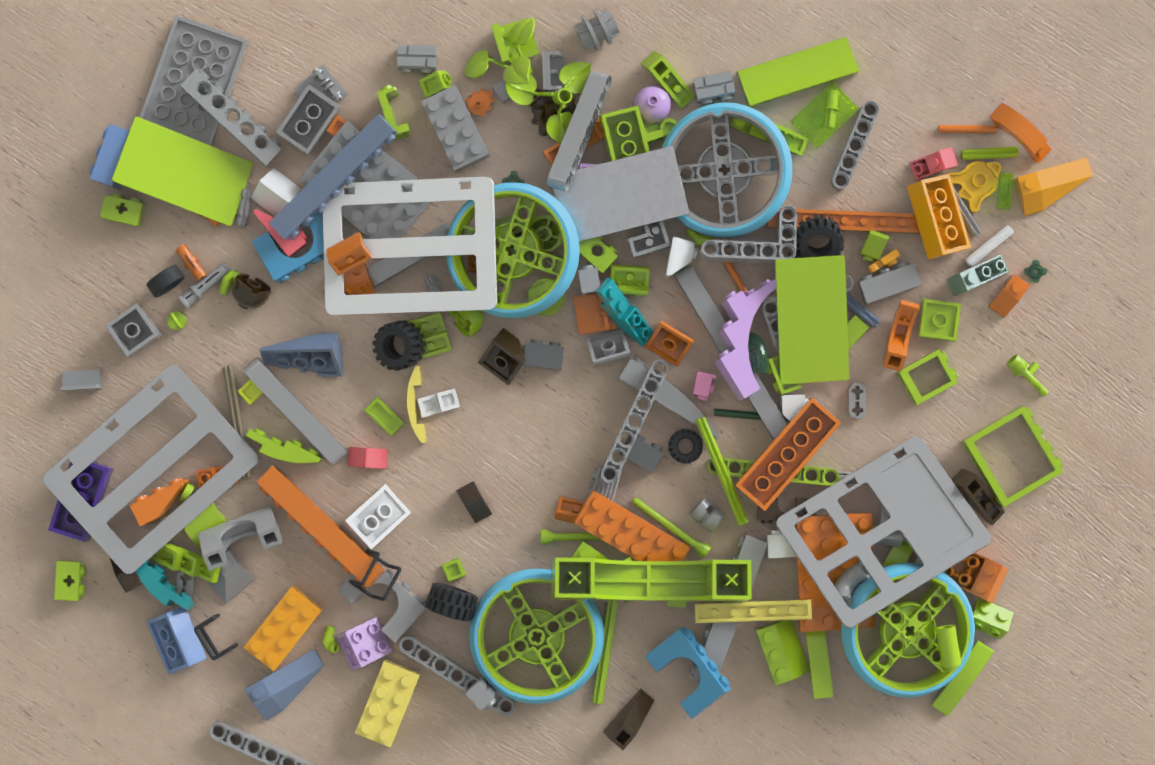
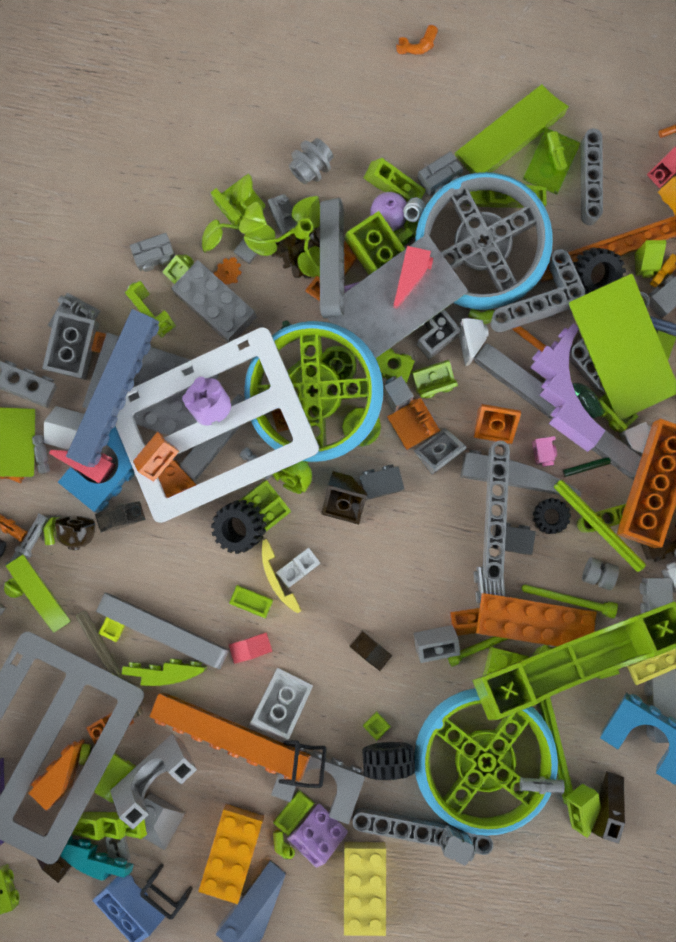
camera: 20 degrees left, 5 degrees down
(197, 334) = (38, 593): none -> lime slope
(295, 294) = (119, 516): none -> clear smoke slope
(311, 353) = (159, 567): sand blue wedge -> none
(351, 615) = (293, 812): none -> lime tile
(413, 224) = (207, 401): none -> lavender brick
(534, 518) = (436, 644): none -> light grey brick
(574, 672) = (542, 785): none -> light grey pin
(605, 710) = (583, 809): none -> lime slope
(623, 313) = (442, 413): teal slope -> none
(645, 175) = (413, 270): none -> coral slope
(674, 113) = (409, 210): none -> white brick

